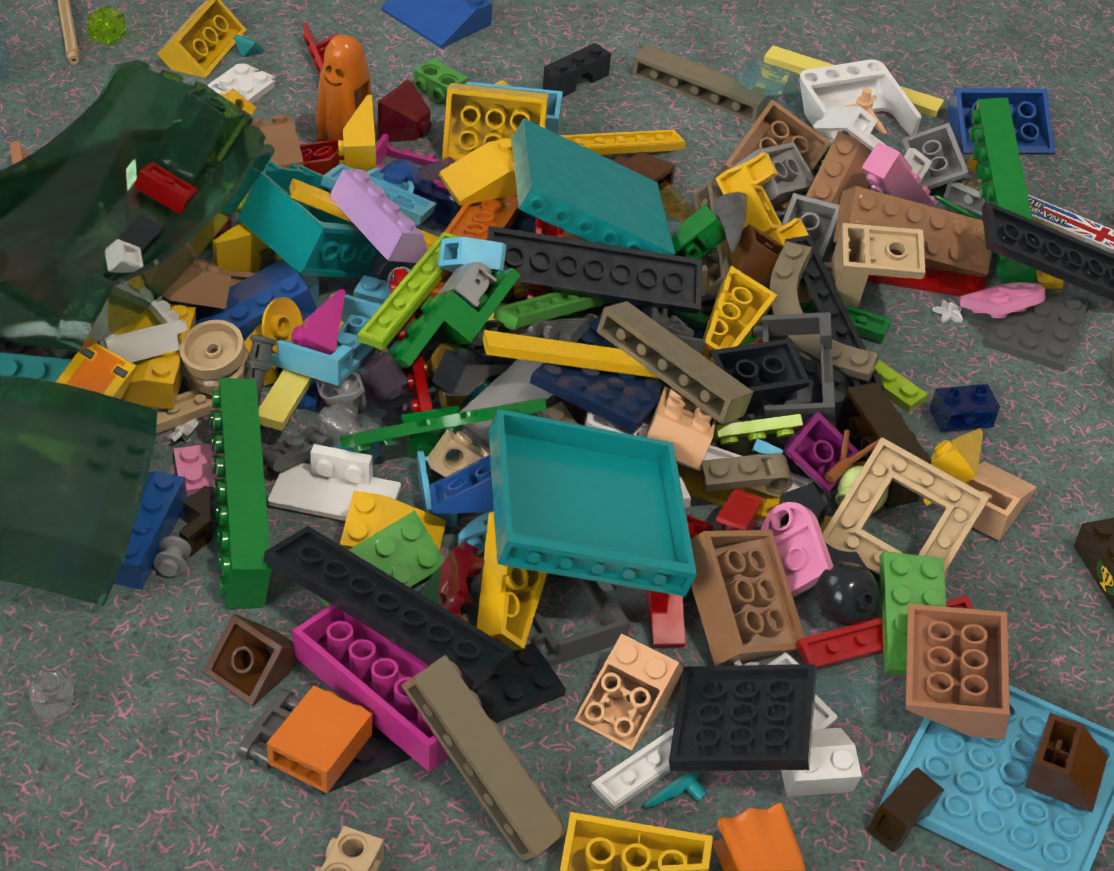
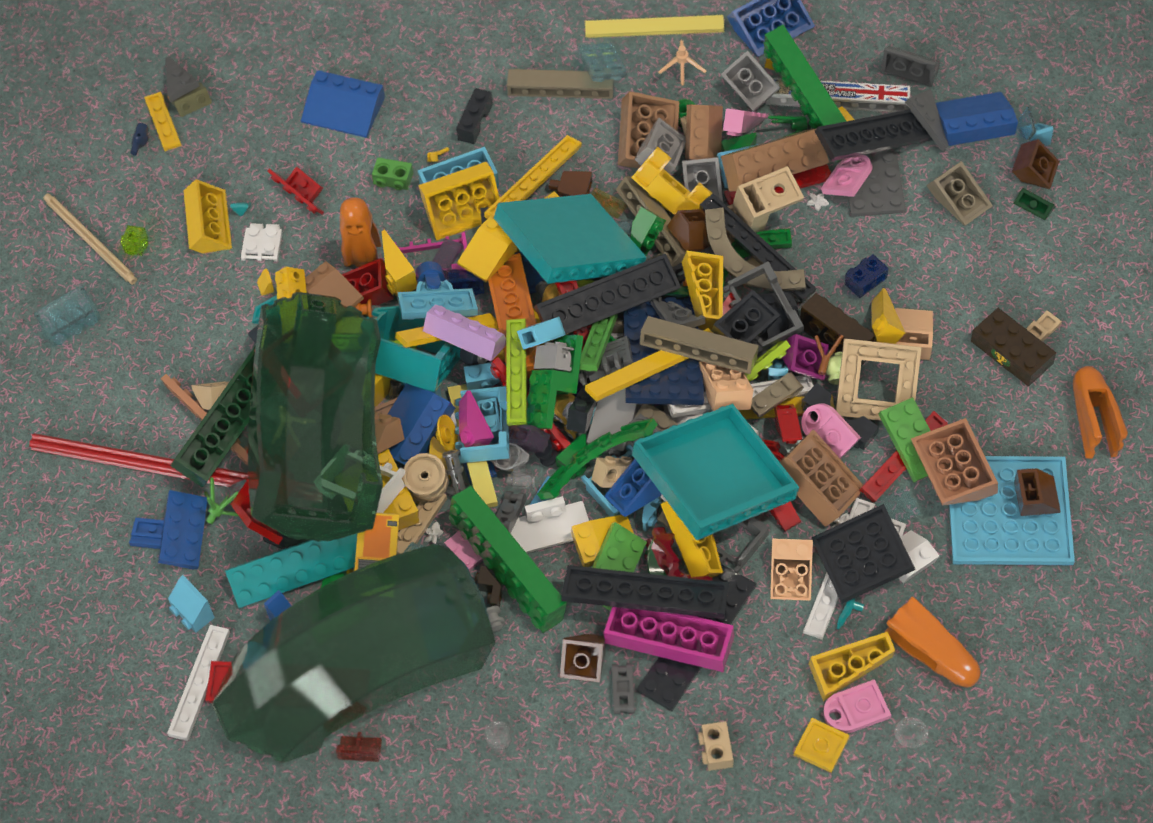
camera: 20 degrees left, 15 degrees up
(123, 257) = (327, 440): white slope -> none
(142, 233) = (321, 423): black tile -> none
(165, 187) = (314, 375): red slope -> none
(319, 738) = (656, 684): orange brick -> none
(403, 114) = (394, 217): dark red slope -> none
(484, 758) = (752, 652): dark tan brick -> none
(732, 213) = (658, 202): flat silver piece -> none
(844, 83) = (659, 45): white windscreen -> none
(847, 594) = (873, 447): black cylinder -> none
(859, 125) = (705, 96): white hinge -> none
(899, 388) = (819, 278): lime plate -> none
(903, 808) = (969, 562): dark brown slope -> none

